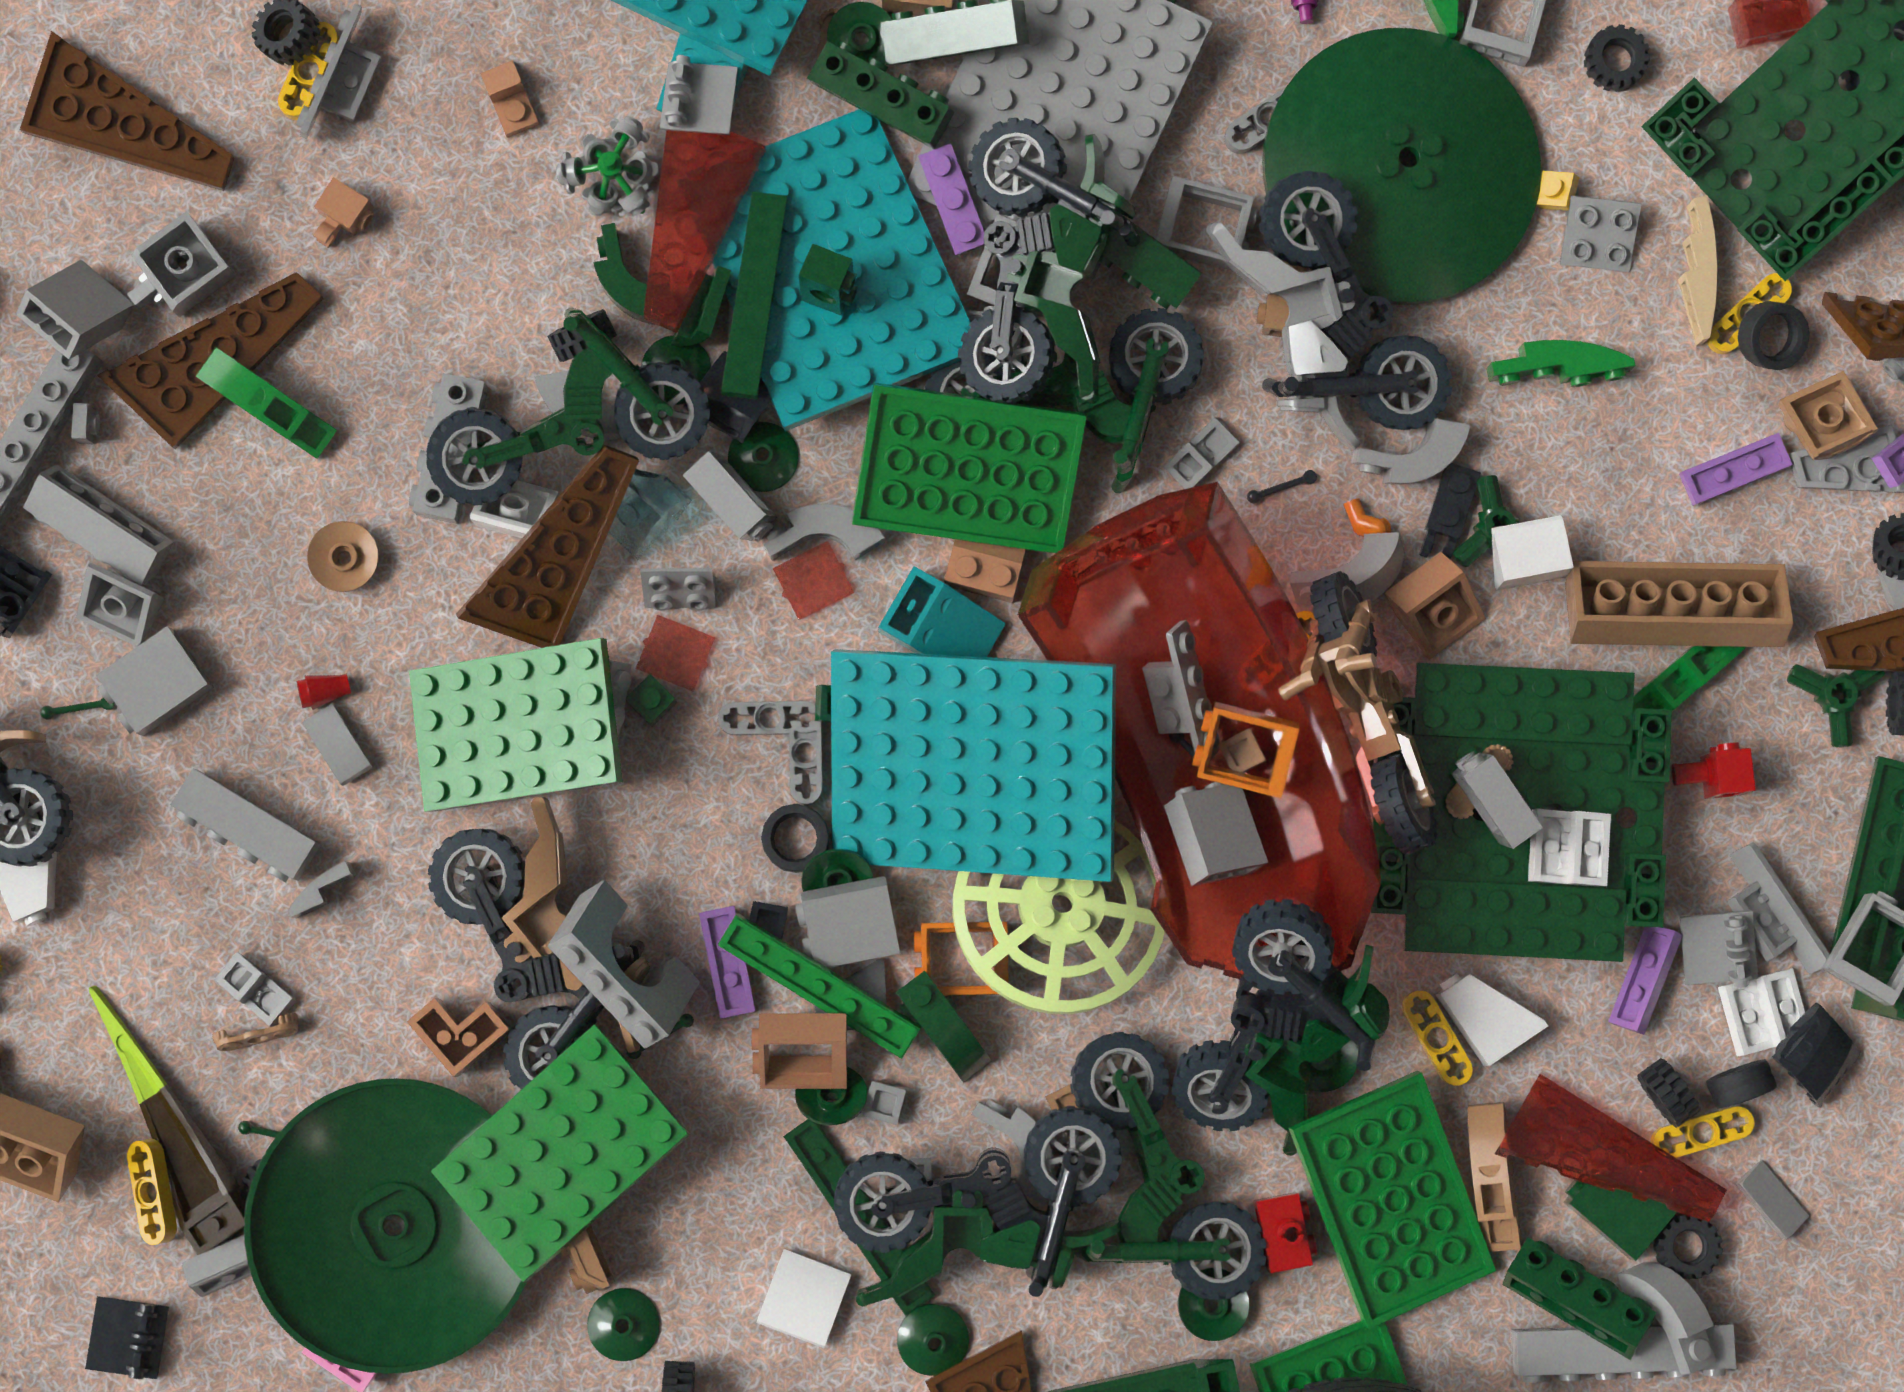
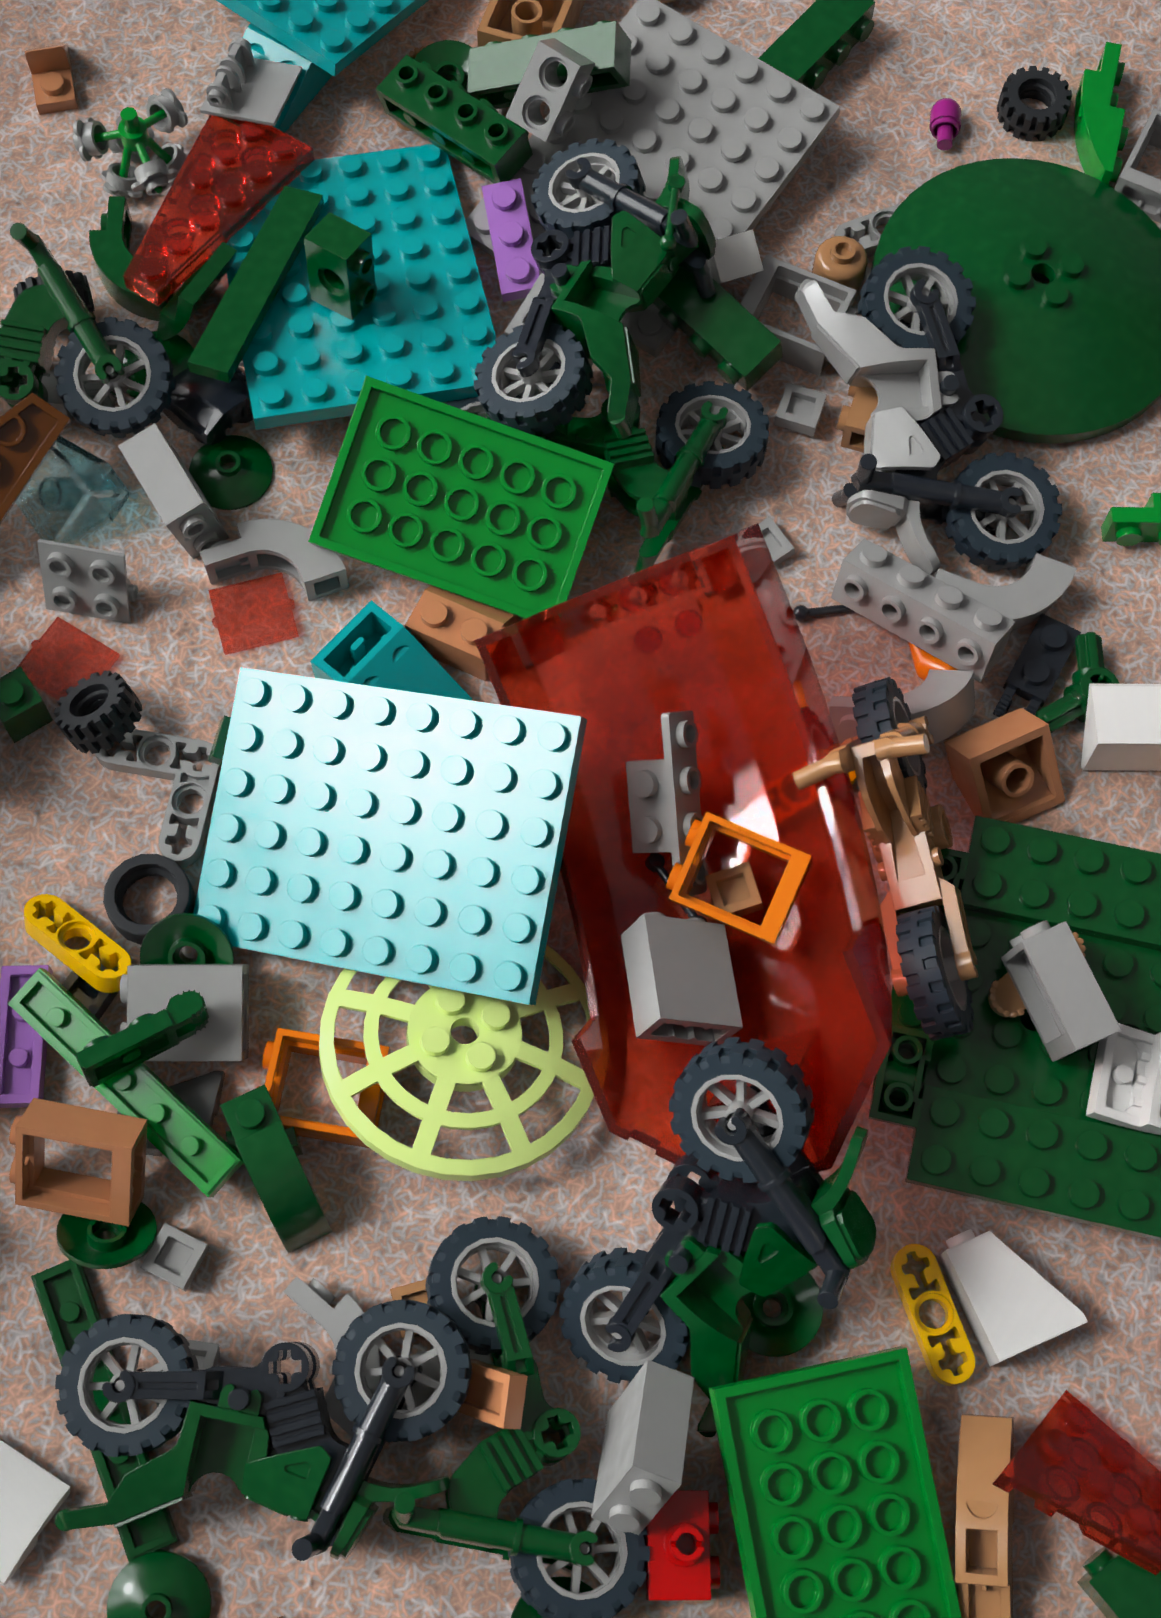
camera: 15 degrees right, 15 degrees down
(705, 684) = (98, 712): none -> black tyre
(746, 869) = (69, 925): none -> yellow beam
(831, 955) = (143, 1038): none -> dark green hinge
(964, 69) = (542, 84): none -> light grey brick
(1097, 175) = (676, 186): none -> dark green hinge
(1141, 1160) = (495, 1395): none -> nougat tile
(1144, 189) = (735, 257): none -> white brick
(1223, 311) = (800, 409): none -> light grey plate
(1235, 169) = (841, 261): none -> medium nougat head
(1249, 1175) = (643, 1448): none -> light grey brick
(1351, 484) = (922, 603): none -> light grey brick

